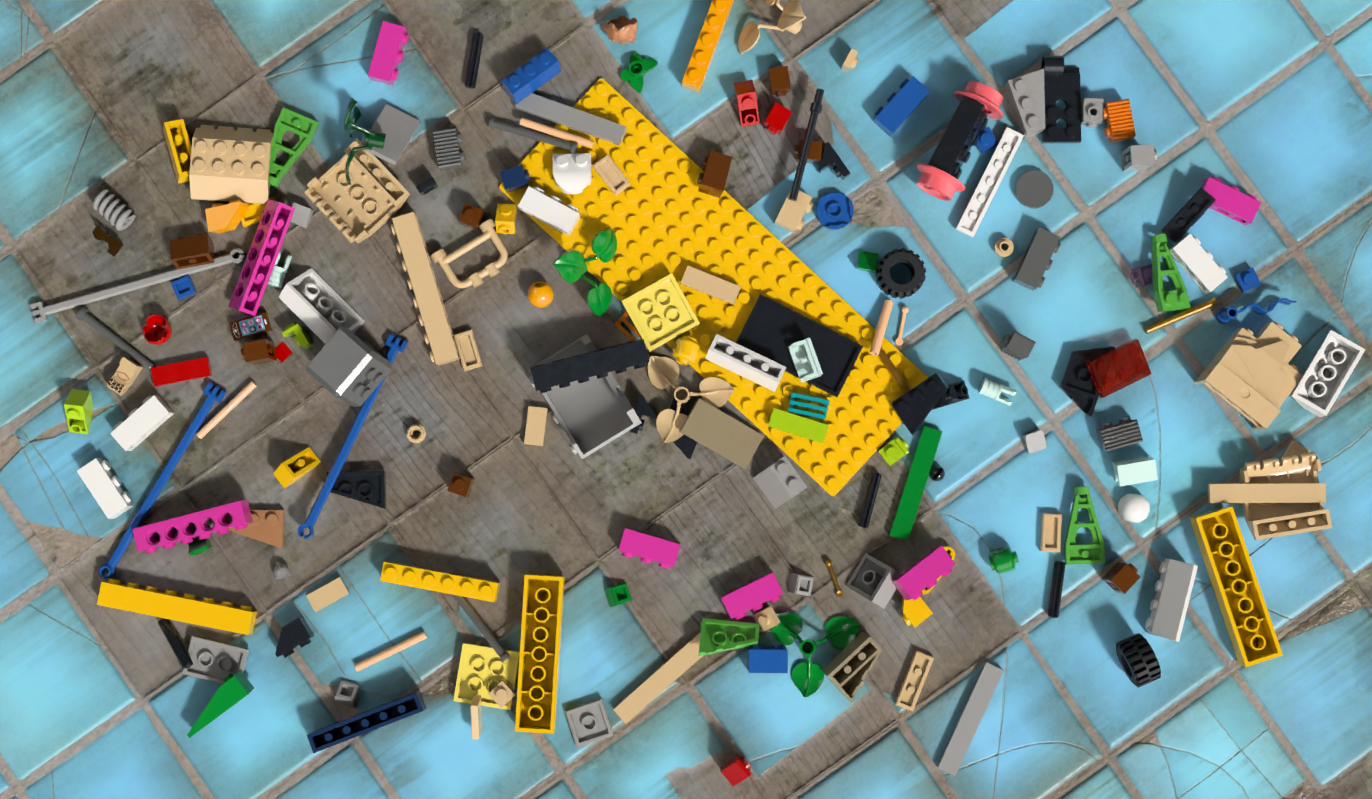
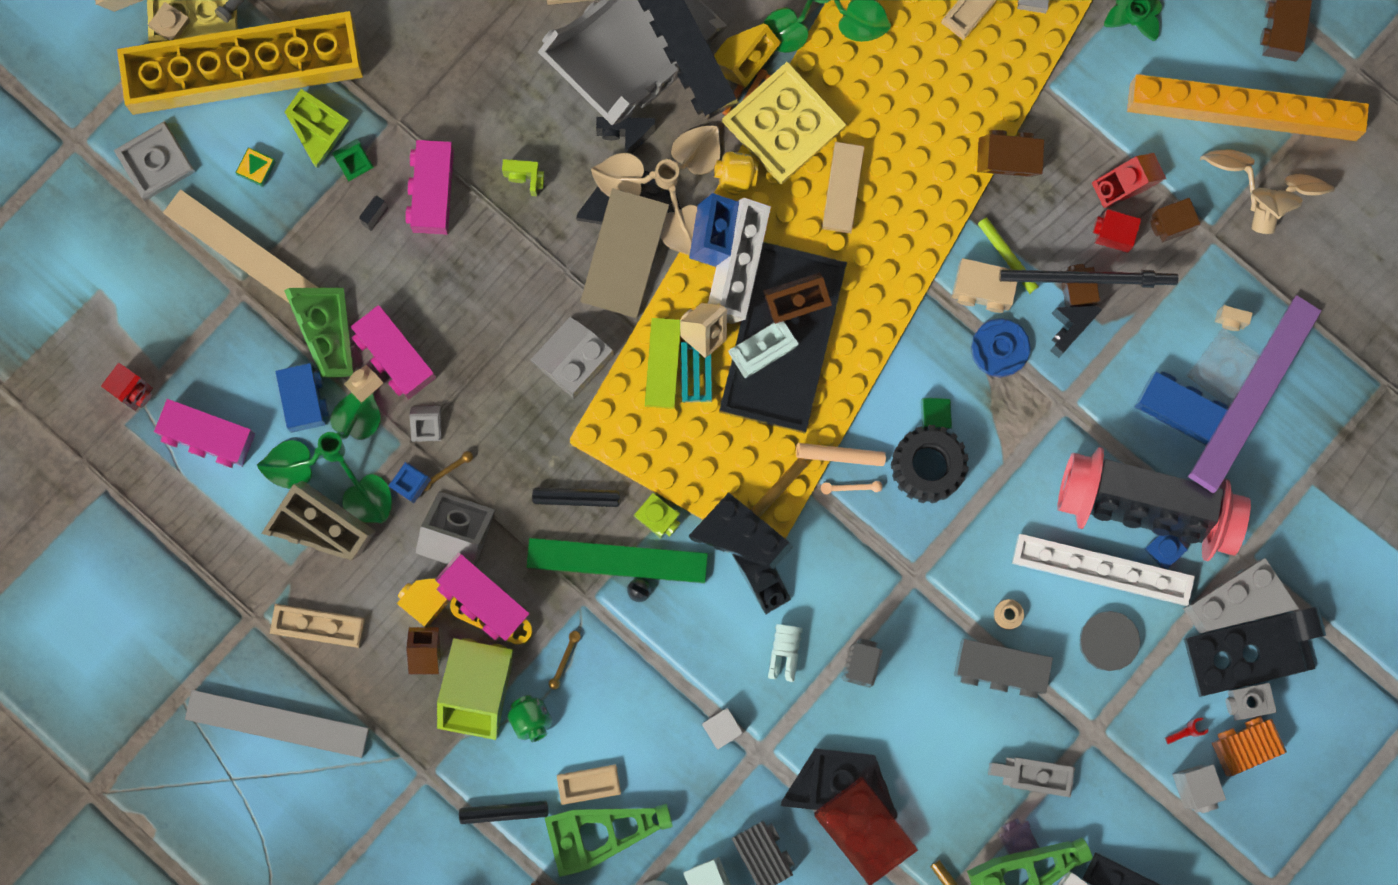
camera: 70 degrees right, 5 degrees down
(591, 613) = (315, 125): none -> lime wing
(608, 658) = (255, 167): none -> tile
(609, 326) = (746, 53): none -> yellow slope
(652, 488) = (519, 171): none -> lime bracket
(657, 588) = (373, 212): none -> black tile
(722, 373) = (714, 230): none -> blue brick
(771, 193) = (1005, 251): none -> lime bar
(777, 727) = (204, 434): none -> dark pink brick
(779, 331) = (797, 298): none -> reddish brown brick
(784, 394) = (705, 327): none -> tan slope
(837, 602) = (409, 482): none -> blue tile
(880, 72) = (1223, 366): none -> clear plate
(904, 60) = (1254, 394): none -> medium lavender tile
(947, 616) = (423, 650): none -> reddish brown brick
(957, 520) = (574, 637): none -> pearl gold hinge
(976, 589) = (474, 688): none -> lime slope
(1099, 154) = (1189, 730): none -> red hand
(1107, 256) = (1035, 776): none -> light grey hinge

